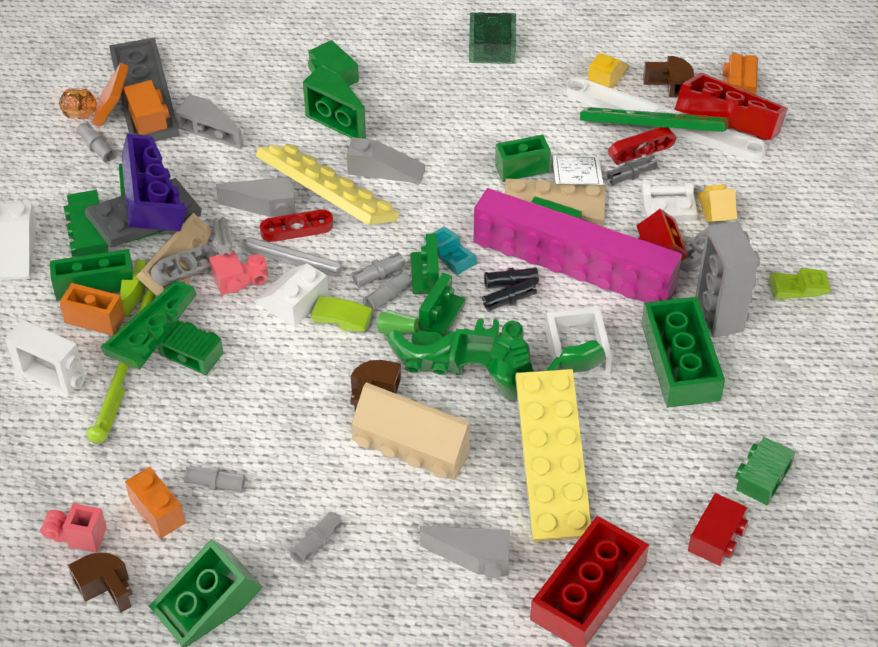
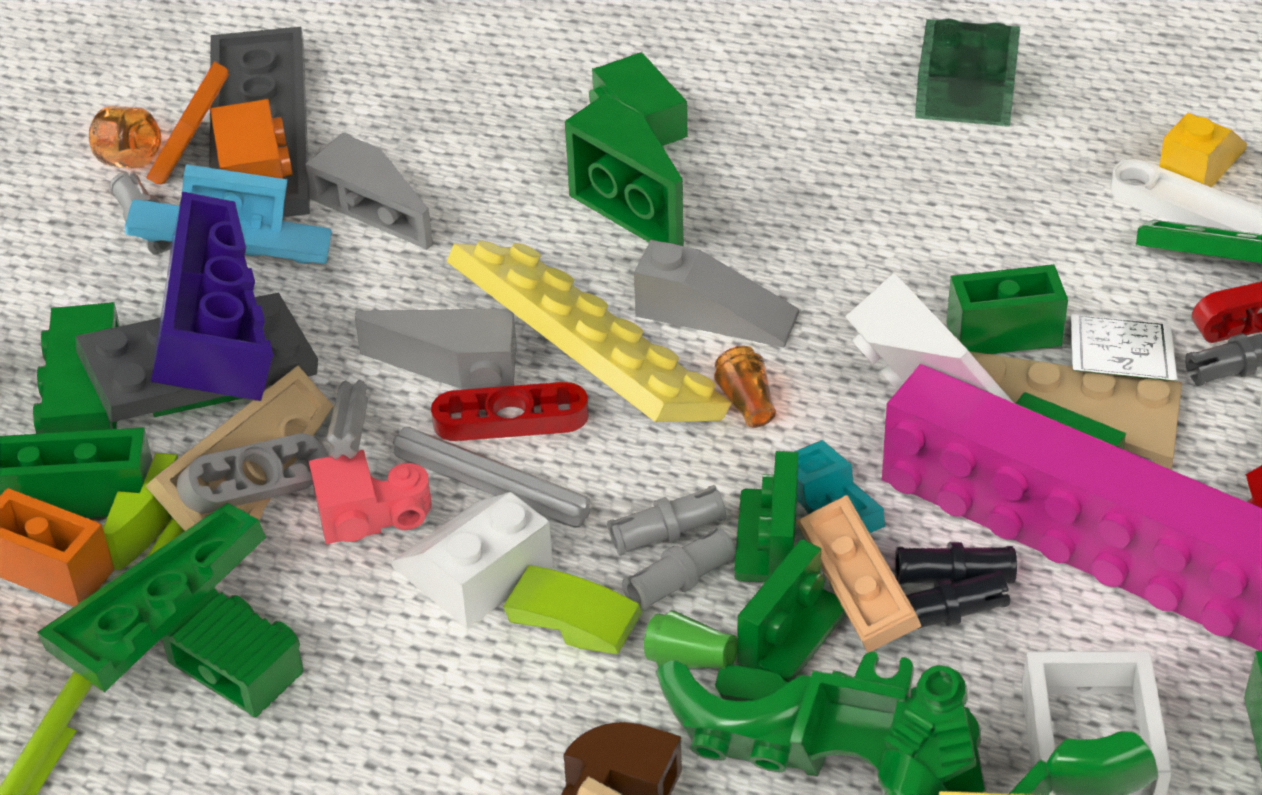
camera: 10 degrees right, 5 degrees down
(156, 128) = (259, 208): none -> medium azure bracket
(404, 201) = (745, 382): none -> clear orange cone
(469, 285) = (859, 574): none -> light nougat tile
(479, 175) = (906, 333): none -> white slope

